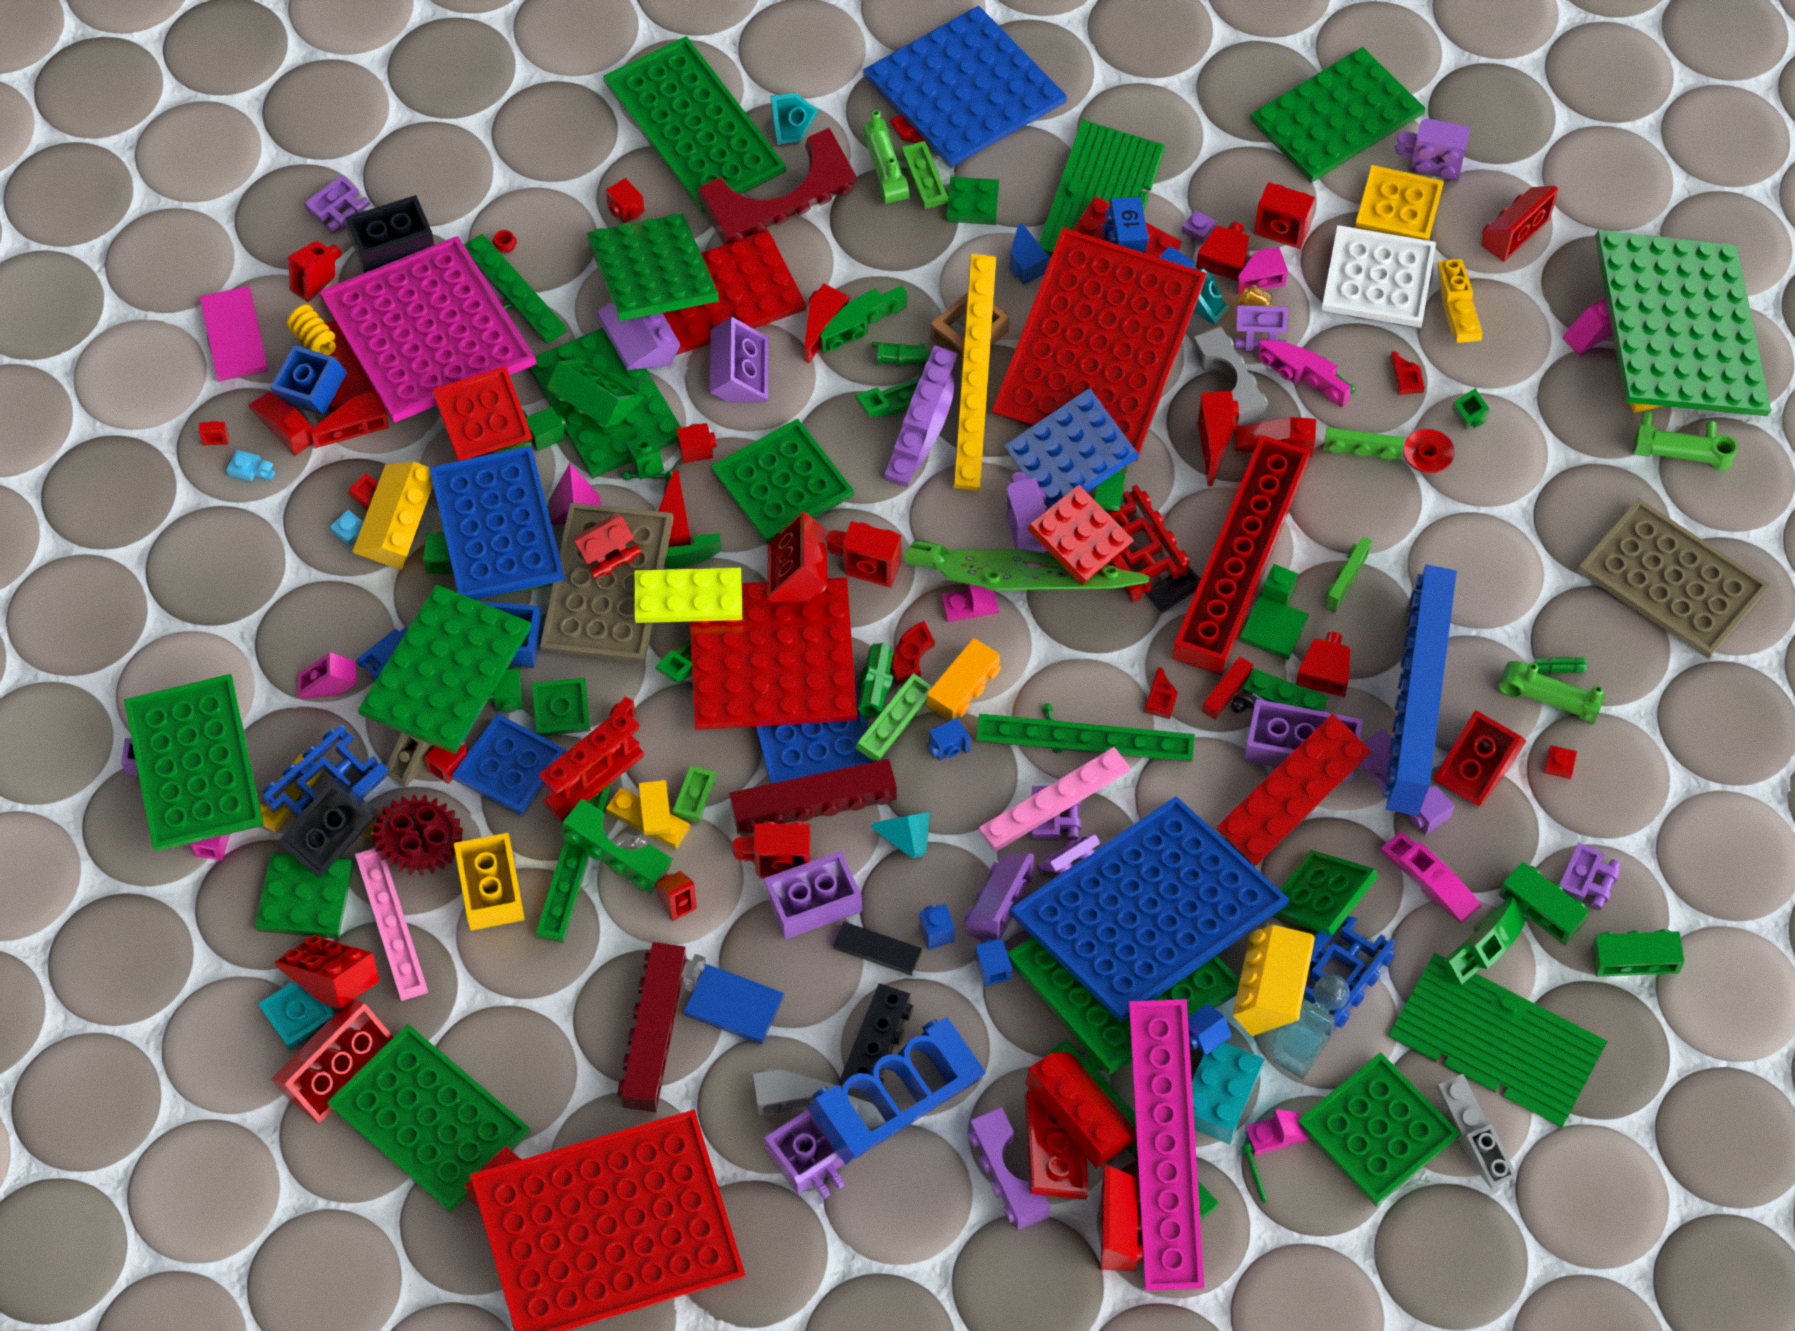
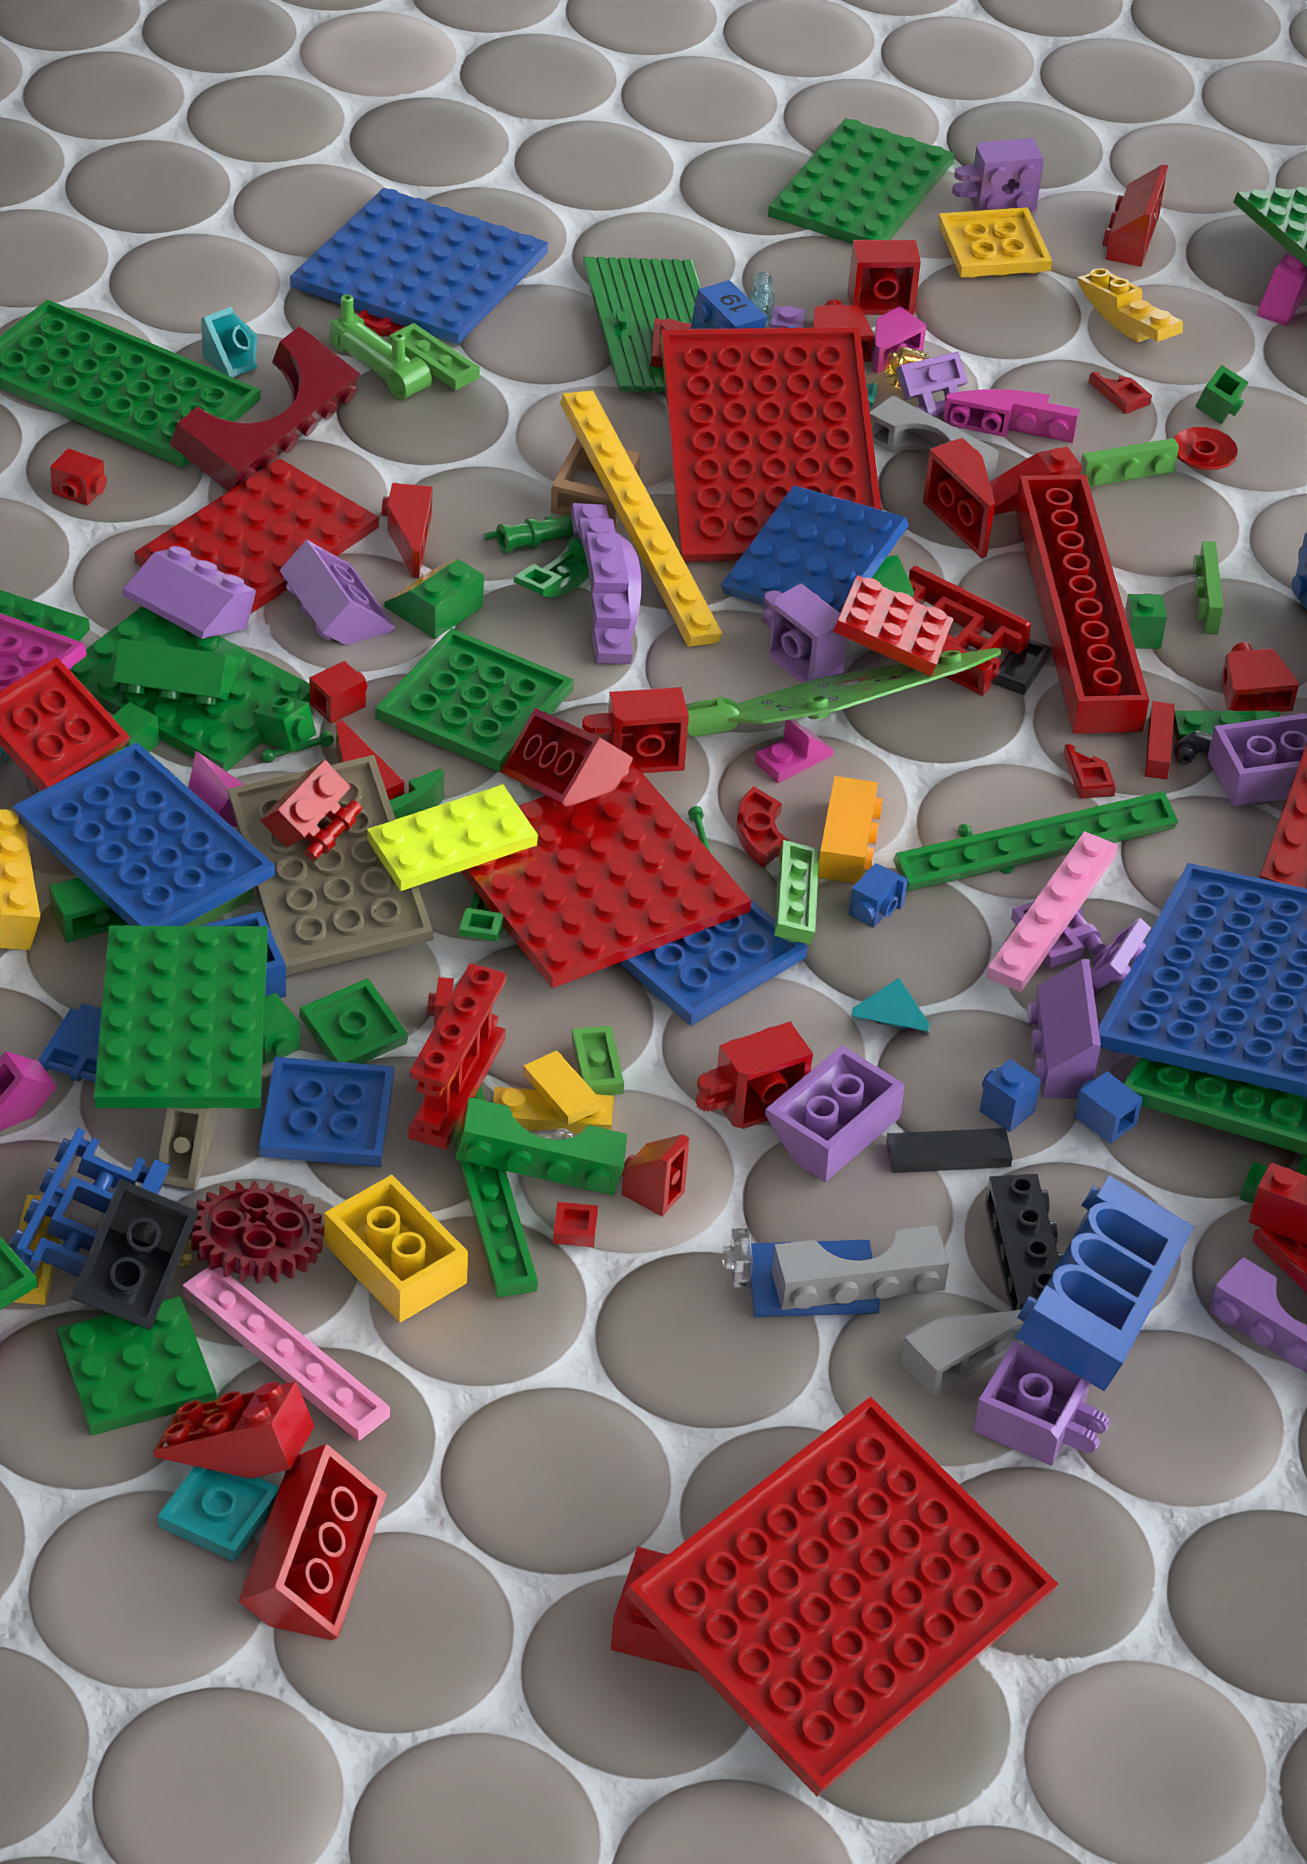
camera: 30 degrees left, 15 degrees down
(427, 1116) = (492, 1566): green plate -> none
(444, 763) = (237, 1136): red brick -> none
(611, 907) = (575, 1224): none -> red plate
(652, 267) = (166, 522): green plate -> none
(653, 1027) = (730, 1341): dark red brick -> none
(789, 1024) = (813, 1277): none -> light grey arch
(806, 388) = (440, 598): none -> green slope
(814, 795) = (766, 999): dark red brick -> none
(853, 319) = (455, 504): green slope -> none
(874, 627) = (696, 815): none -> green piece
(875, 680) = (744, 861): green piece -> none
(973, 200) = (509, 367): green plate -> none
(1027, 256) = (619, 396): blue slope -> none
(1192, 199) = (762, 294): none -> clear light blue pin
(1274, 627) = (1170, 666): green tile -> none
(1379, 276) = (1023, 311): white plate -> none

